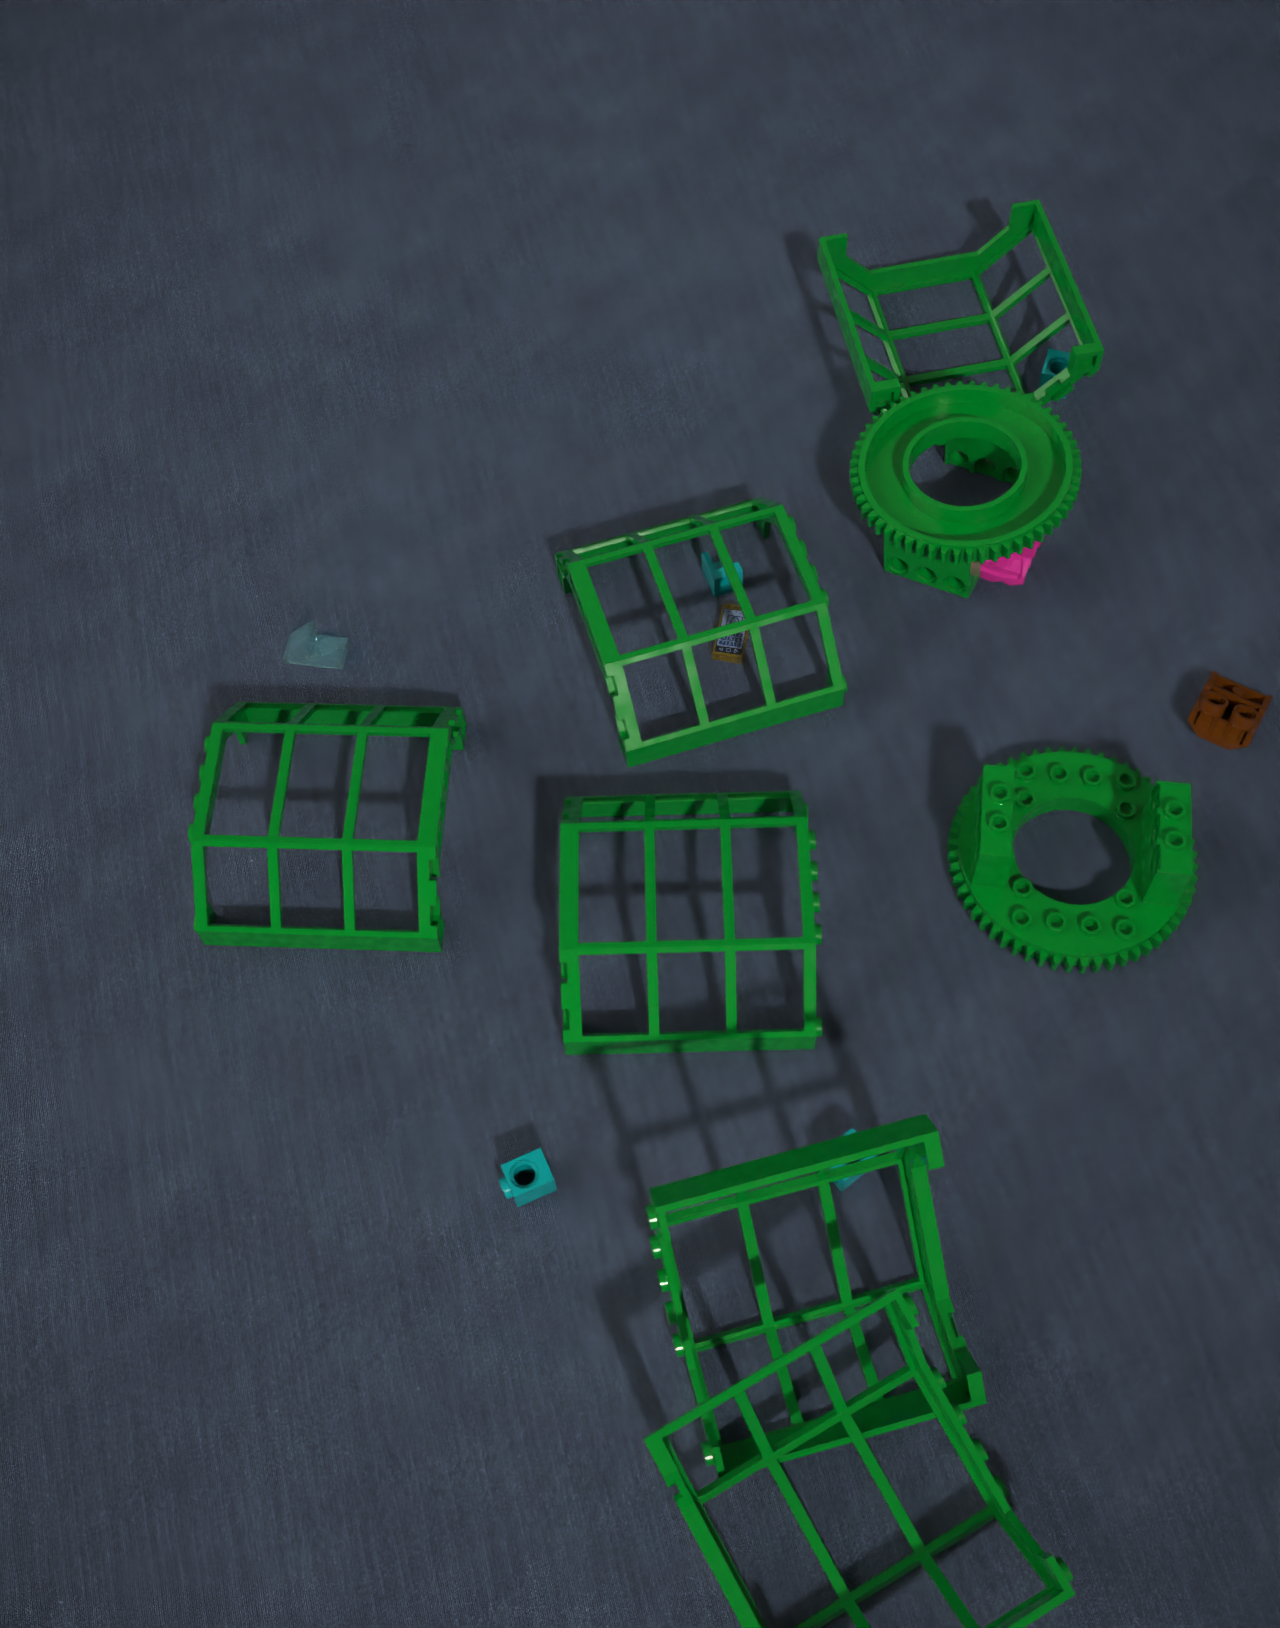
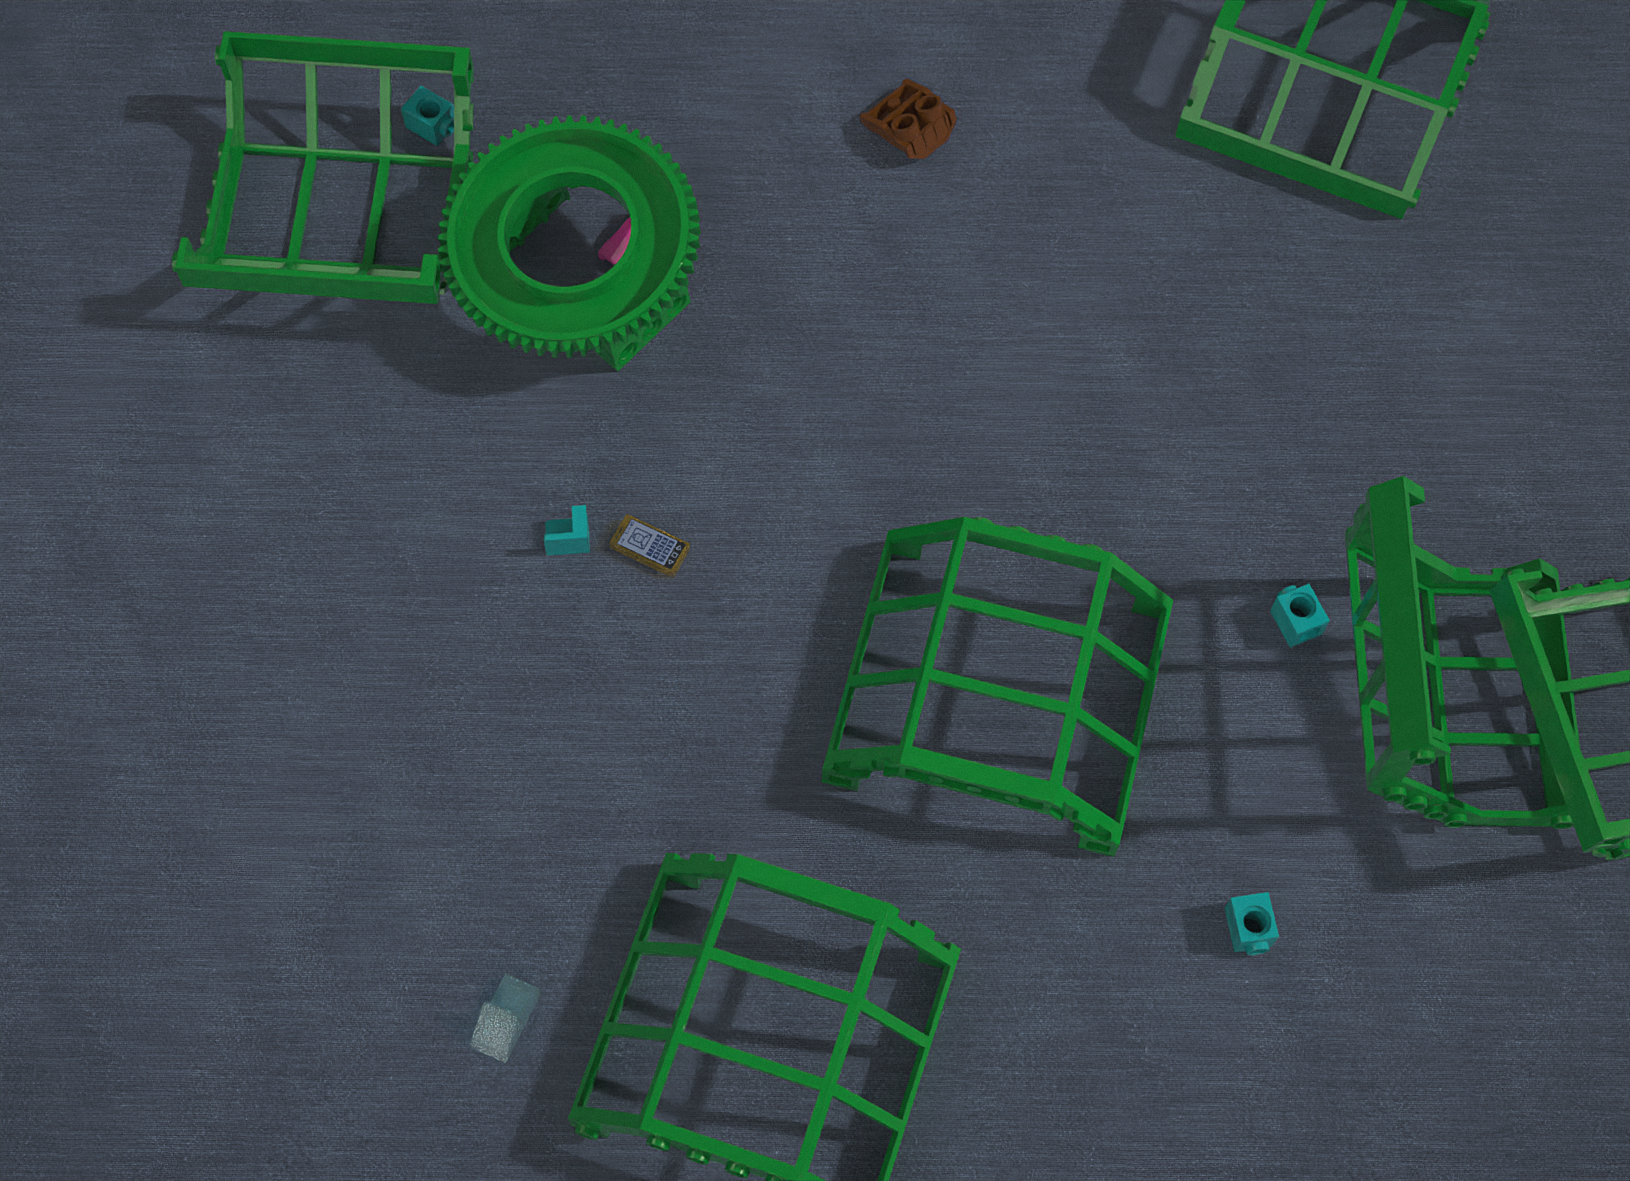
camera: 80 degrees left, 5 degrees up
(575, 578) = (509, 689): green window -> none
(1146, 817) = (1009, 372): green piece -> none

